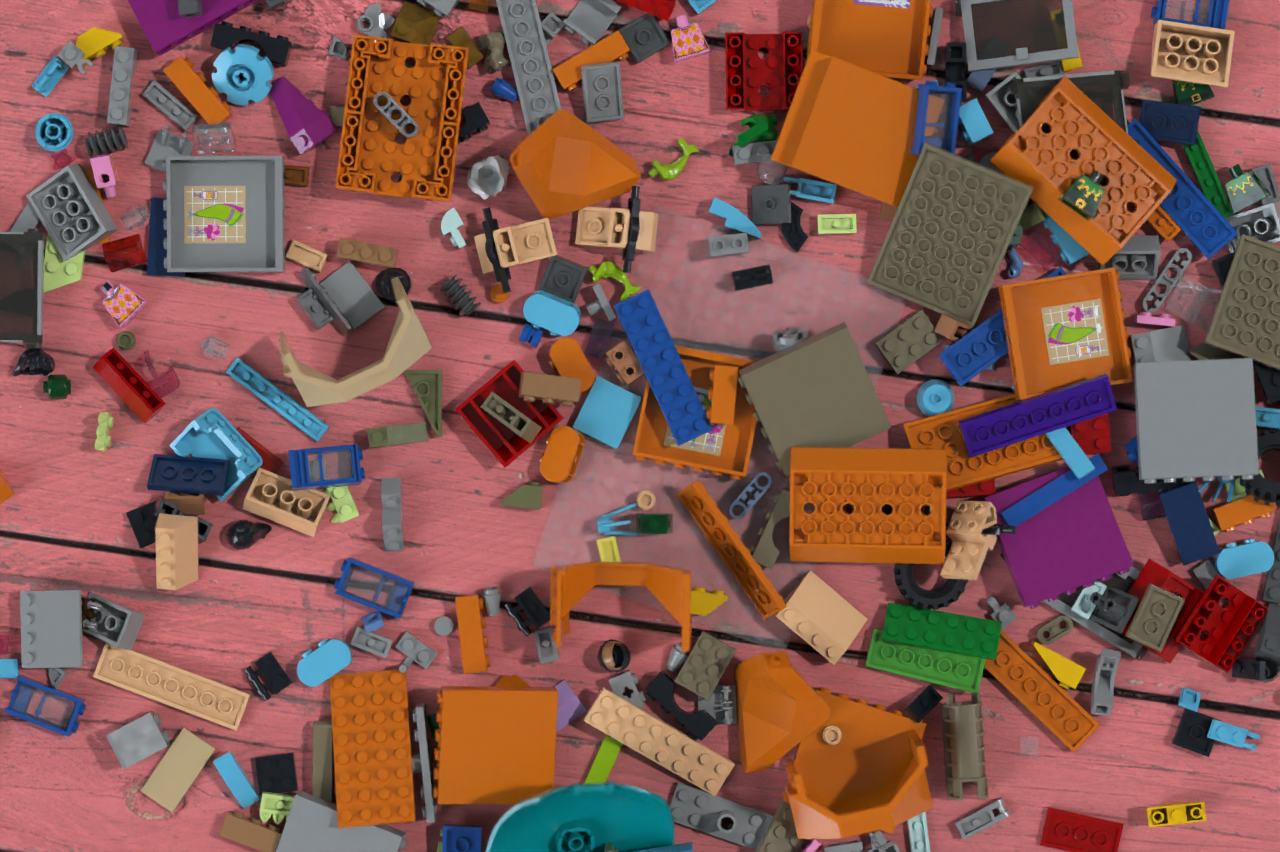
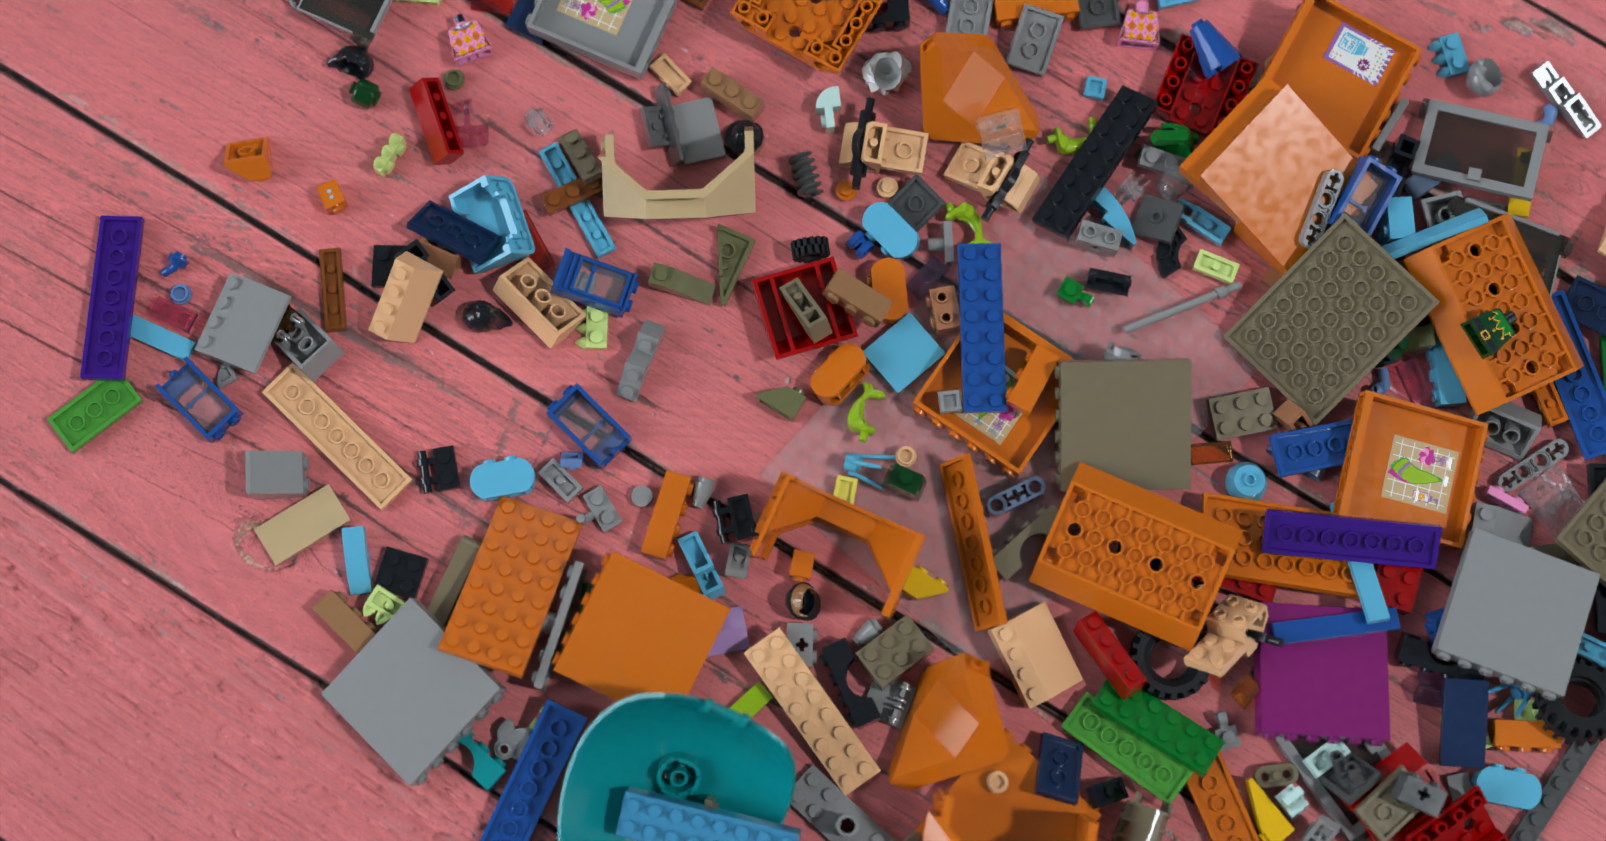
camera: 15 degrees right, 10 degrees down
(72, 488) = (332, 197): none -> orange brick
(110, 565) = (333, 290): none -> dark orange tile
(263, 362) = (581, 156): none -> dark tan plate
(271, 397) = (570, 195): none -> dark orange plate
(491, 359) = (810, 249): none -> black tyre
(518, 662) = (701, 565): none -> medium azure slope
(532, 275) = (887, 187): none -> light nougat plate
(592, 487) = (855, 418): none -> lime animal
(600, 627) = (801, 565): none -> orange brick
(609, 195) = (1001, 133): none -> clear plate
(663, 441) = (949, 401): none -> light grey tile
(671, 109) = (1095, 88): none -> medium azure tile
(698, 179) = (1095, 162): none -> black plate
(725, 299) = (1071, 291): none -> green plate
(739, 189) = (1131, 189): none -> clear piece
(757, 38) = (1212, 48): none -> blue cone
(849, 245) = (1218, 293): none -> light grey bar
(877, 702) = (1059, 768): none -> dark blue tile
(880, 593) = (1109, 655): none -> red brick
(896, 385) = (1211, 453): none -> clear orange tile
(900, 144) = (1317, 207): none -> light grey beam
(1002, 574) = (1245, 691): none -> clear orange tile
(1006, 126) = (1436, 233): none -> medium azure tile
(1075, 646) = (1292, 801): none -> light aqua brick
(1181, 607) = (1406, 792): none -> dark grey brick

